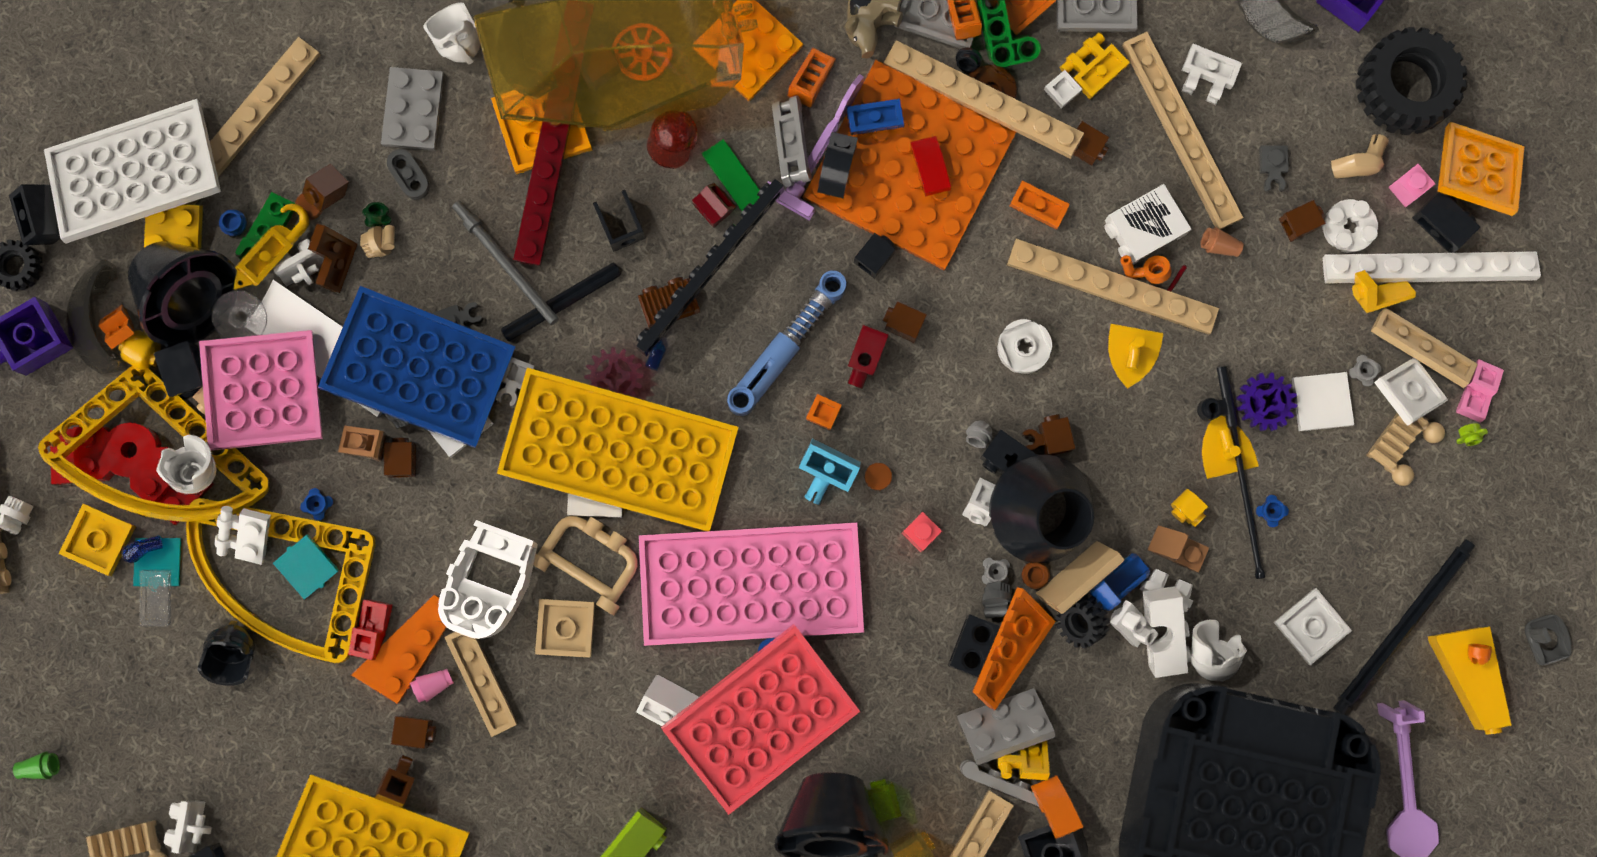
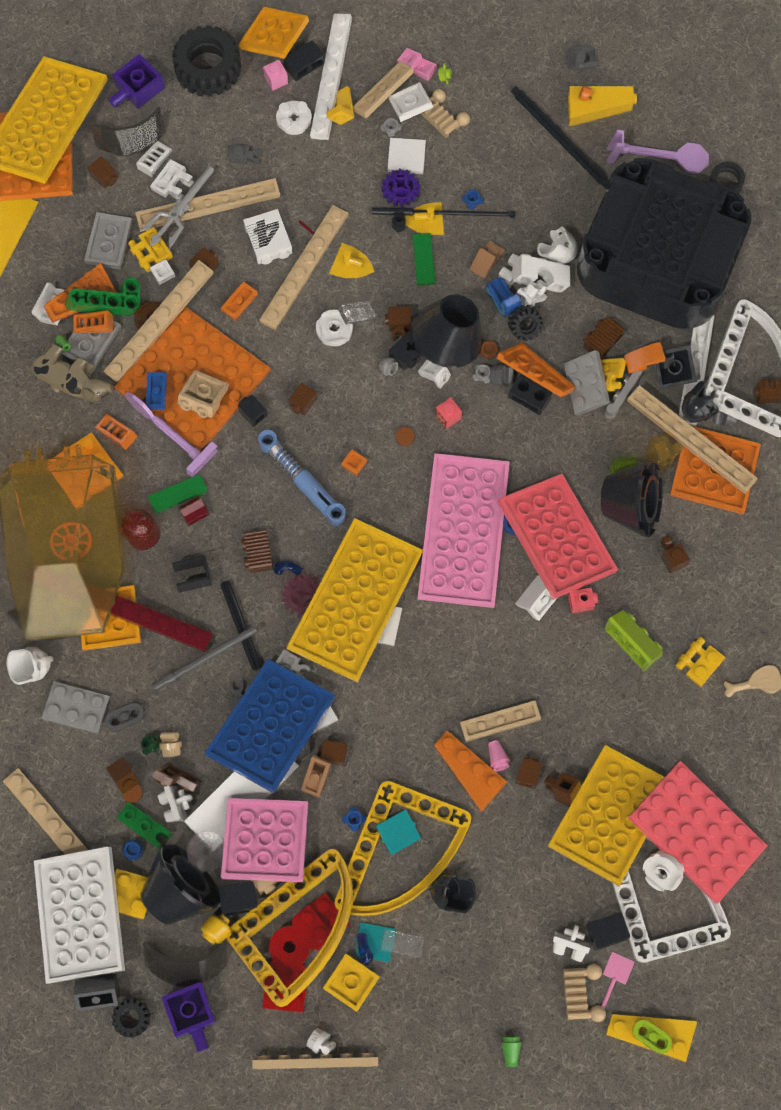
camera: 75 degrees left, 10 degrees down
(116, 326) = (195, 943): orange slope -> none
(189, 467) = (309, 890): white helmet -> none
(251, 535) = (371, 865): white plate -> none
(270, 249) = (162, 819): yellow plate -> none
(373, 624) = (451, 792): red slope -> none
(478, 608) = (449, 713): white slope -> none
(565, 628) = (473, 658): tan plate -> none
(615, 542) = (419, 615): tan bar -> none
(671, 759) = (577, 604): none -> coral brick
(702, 275) = (245, 519): black plate -> none
(791, 141) = (160, 449): light grey plate -> none
(828, 468) = (394, 464): medium azure brick -> none
(837, 164) = (187, 418): black brick -> none
(870, 342) = (315, 421): dark red torso -> none
(880, 180) = (202, 394): none -> tan plate
(930, 166) = (199, 361): red slope -> none
(968, 59) = (128, 327): black plate -> none
(1051, 373) = (356, 312): none -> clear plate
(1080, 577) = (496, 319): tan tile -> none
(1084, 740) = (604, 336): none -> reddish brown brick
(1150, 266) = (294, 238): orange plate -> none
(1159, 89) = (177, 211): none -> light grey piece
(1159, 455) = (423, 259): none -> green tile
(1189, 508) = (462, 246): yellow plate -> none
(1221, 243) = (288, 195): nougat cone -> none
(1228, 45) = (151, 170): none -> white slope
(1302, 220) = (285, 143): reddish brown brick -> none
(1312, 626) = (551, 190): white tile -> none
(1362, 163) = (255, 101): tan arm -> none

